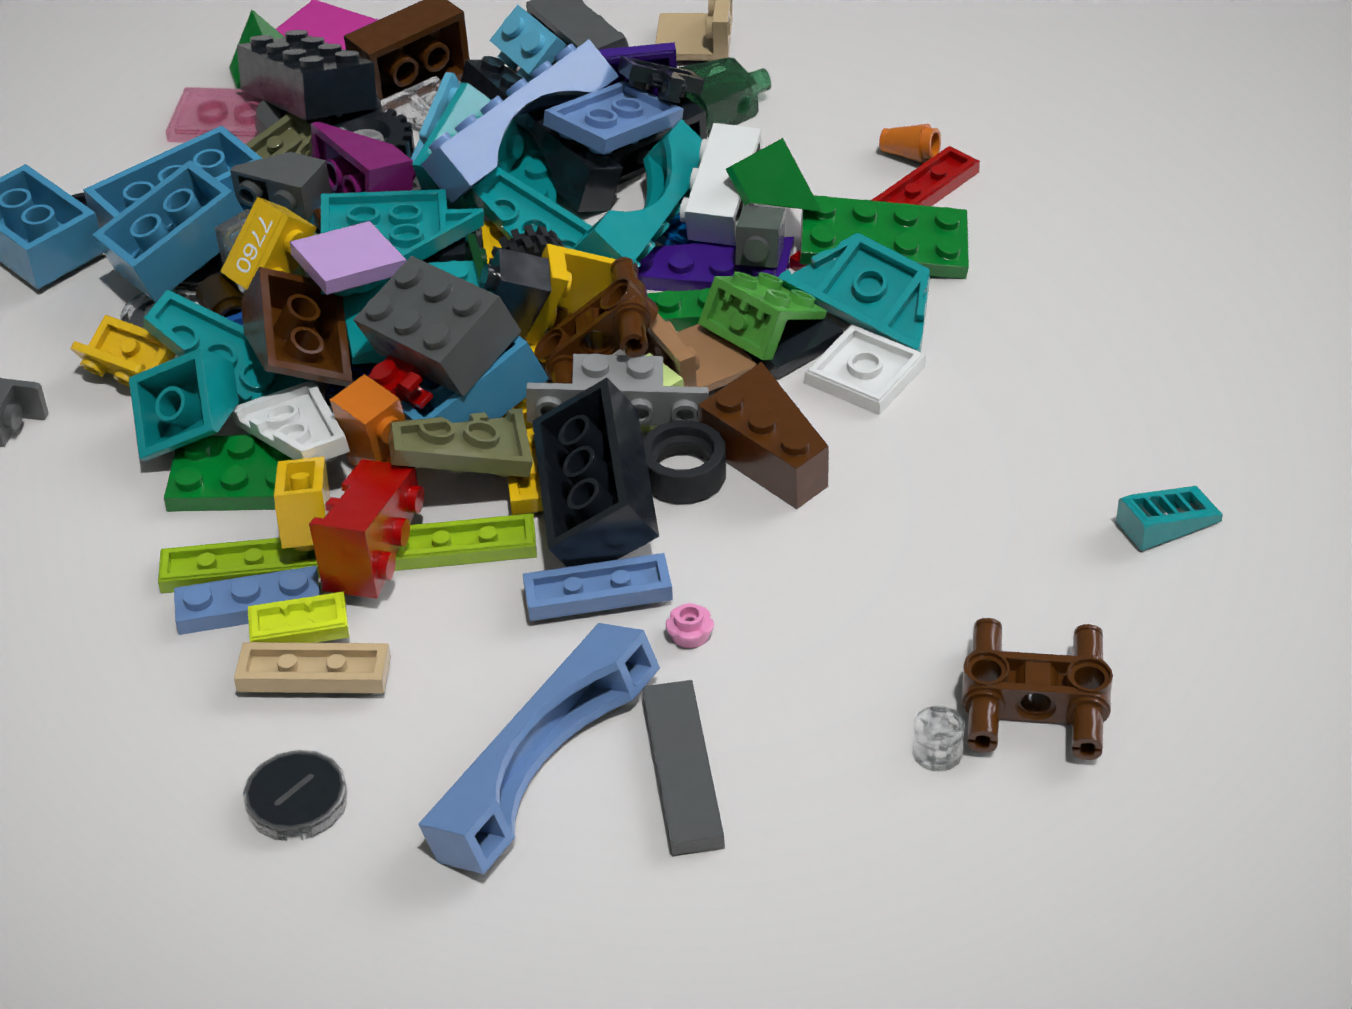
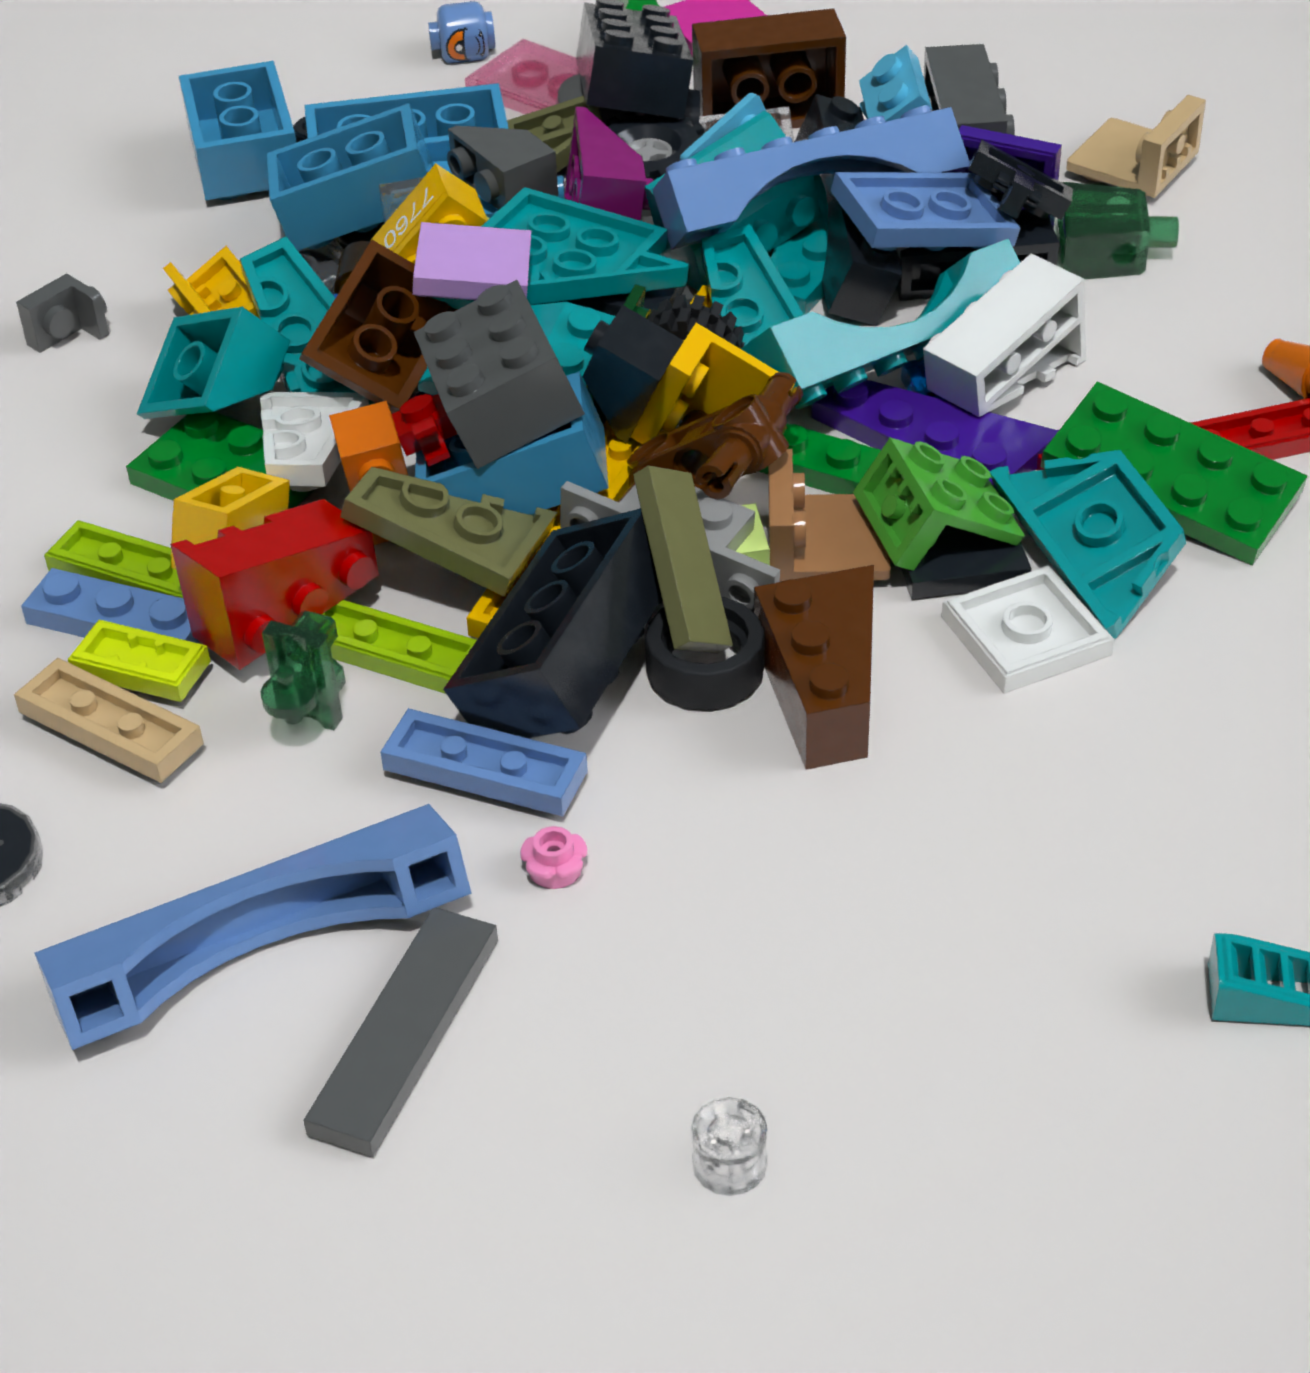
camera: 30 degrees right, 0 degrees up
(135, 97) = (462, 32): none -> medium blue head
(439, 576) = (302, 671): none -> clear green hips
(647, 403) = (682, 560): none -> olive tile
(760, 236) = (1001, 413): dark grey brick -> none
(772, 179) = (1056, 344): green slope -> none
(1037, 688) = (908, 1142): reddish brown piece -> none

